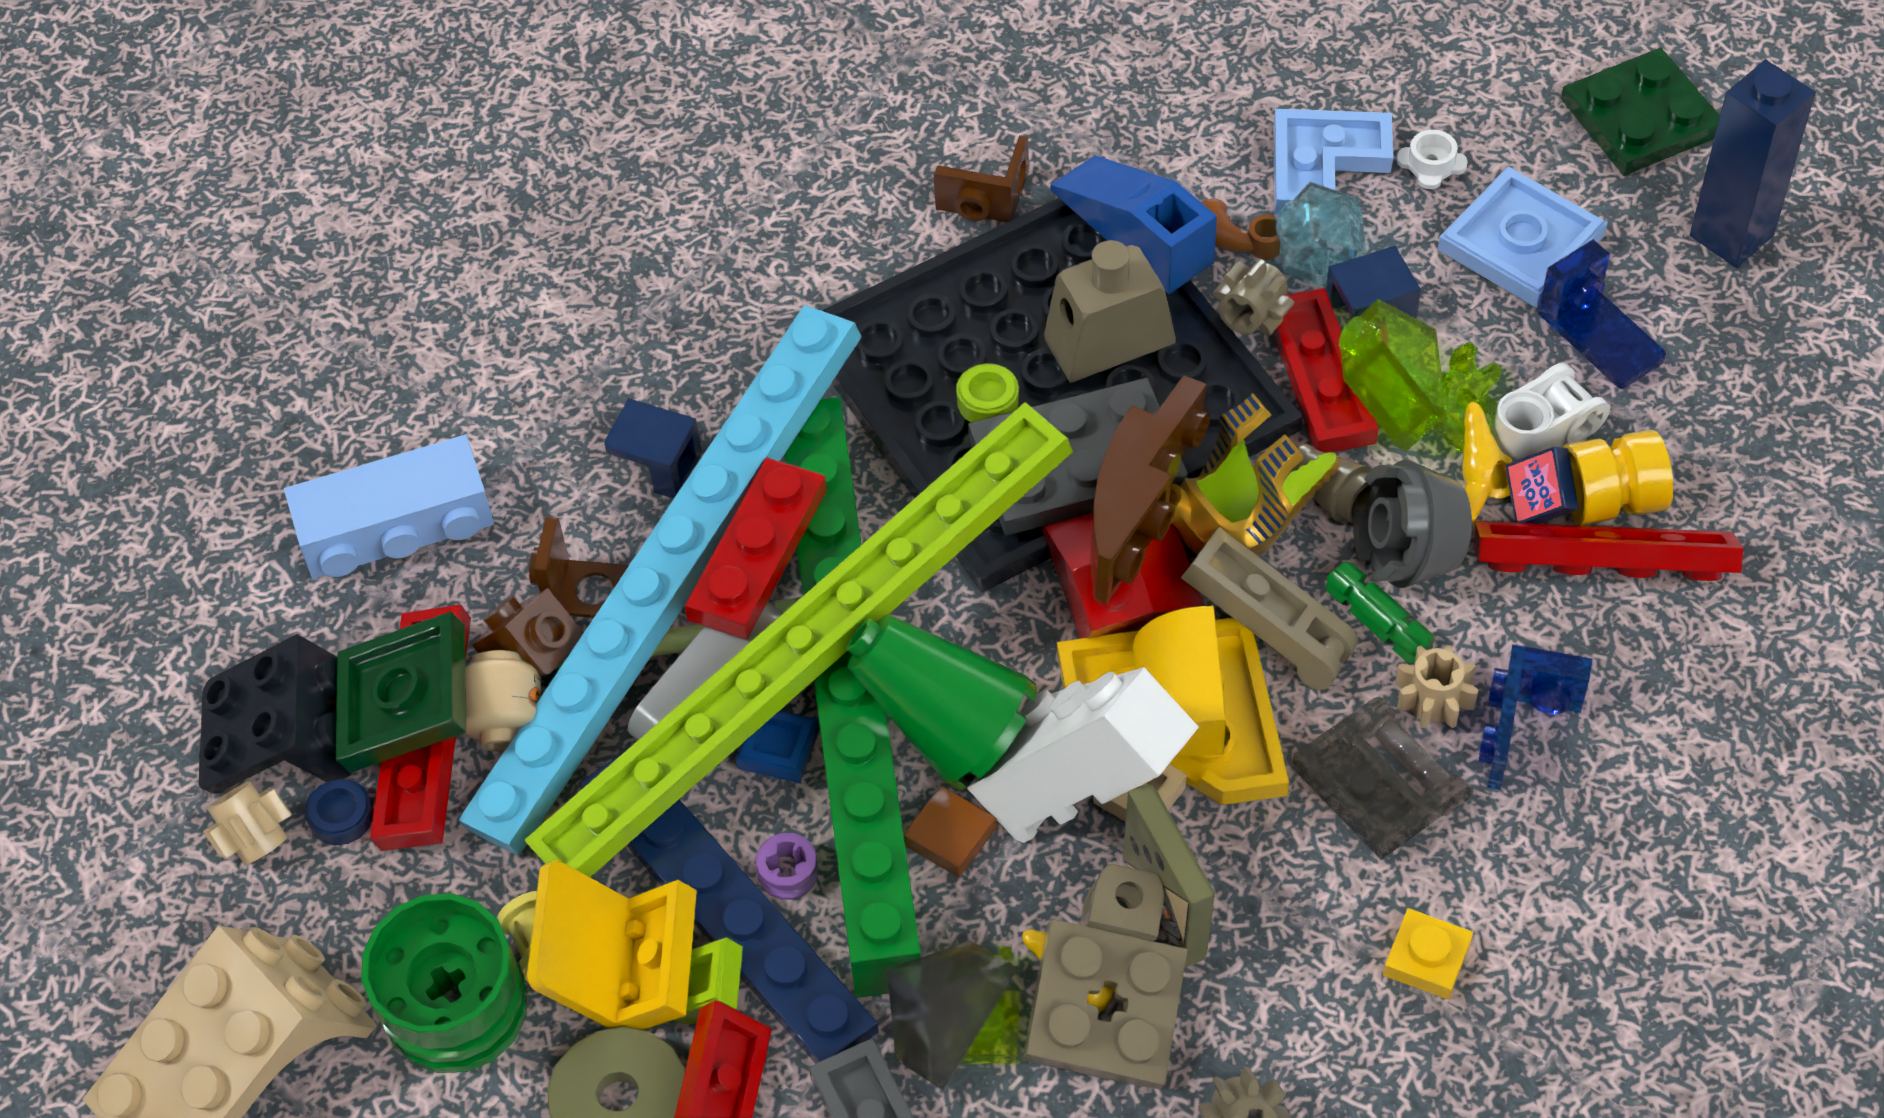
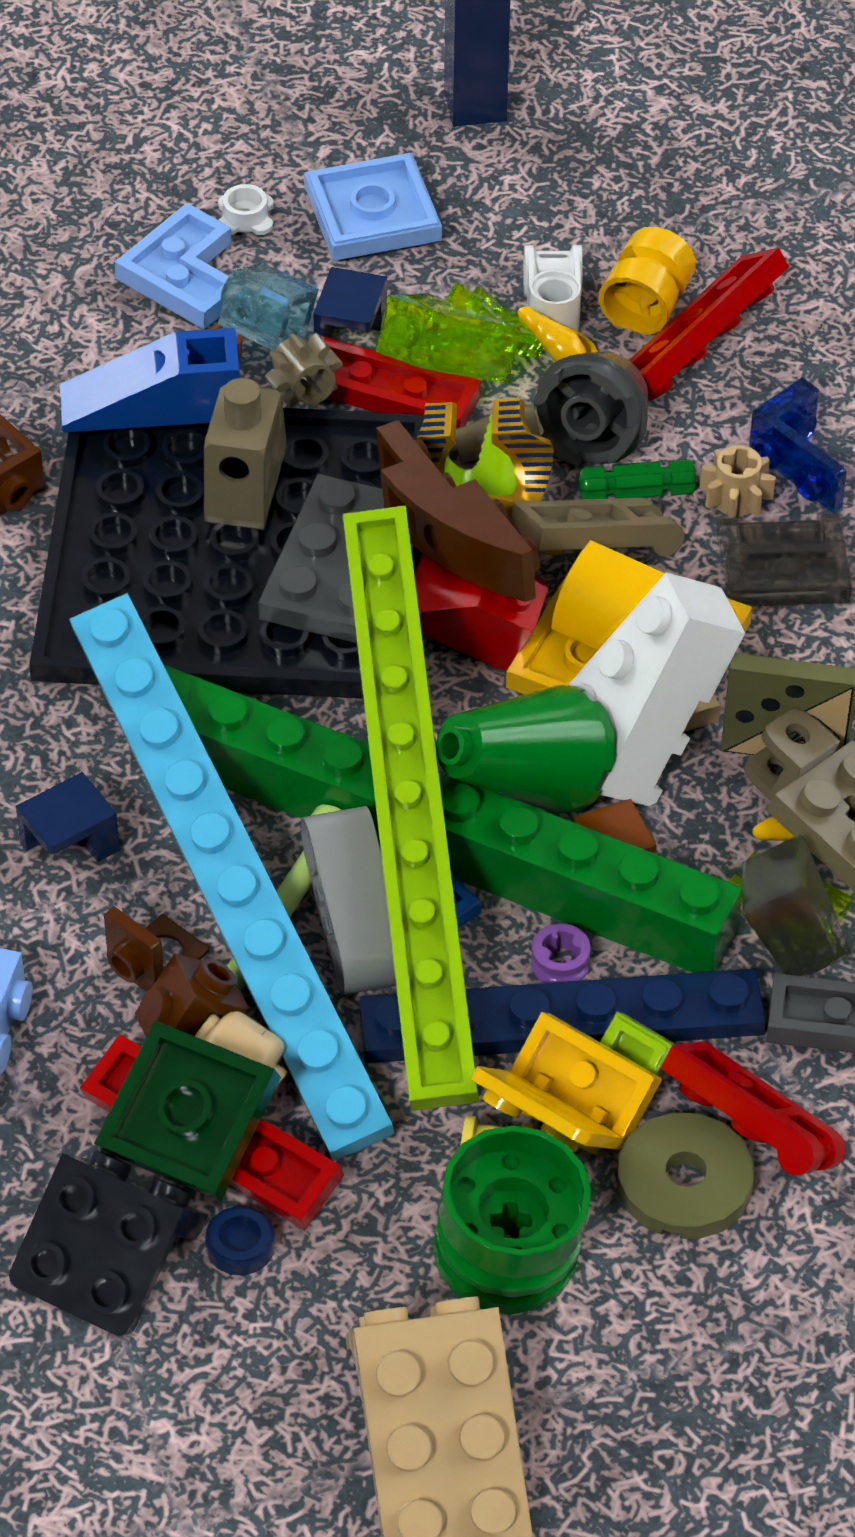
camera: 60 degrees left, 5 degrees down
(247, 823) = (209, 1302): tan gear -> none
(756, 548) = (281, 782): red plate -> none
(987, 392) = (232, 581): lime tile -> none
(1542, 486) = (619, 322): tile -> none
(1591, 322) = (495, 218): clear blue bracket -> none
(1641, 111) = (317, 78): dark green plate -> none

